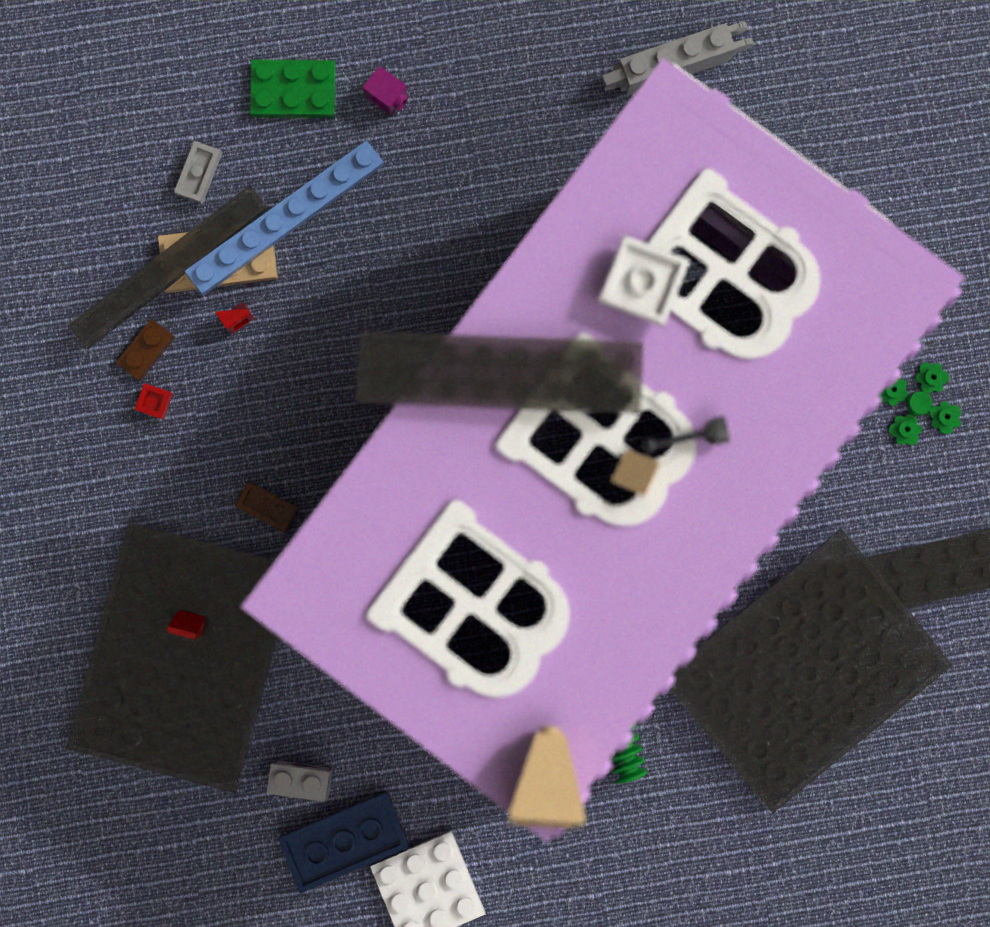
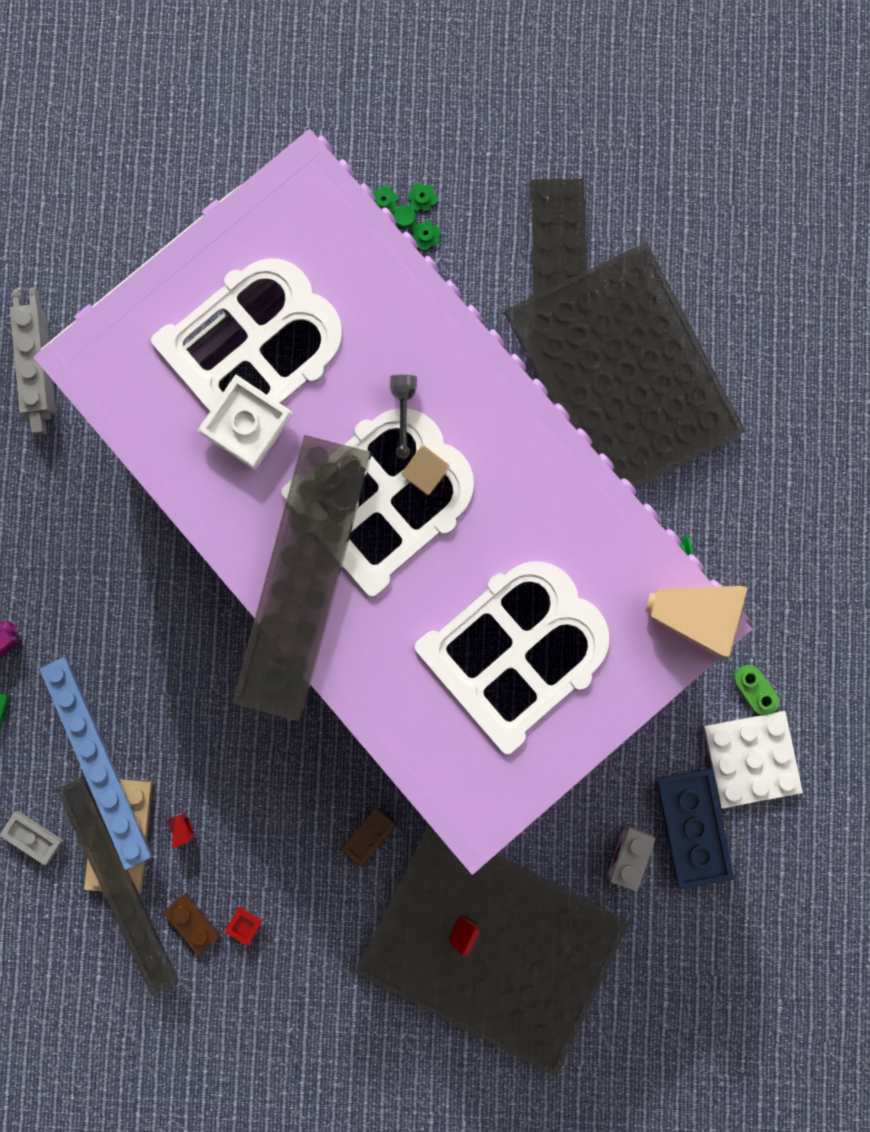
camera: 75 degrees left, 0 degrees up
(500, 879) = (756, 690): none -> bright green plate

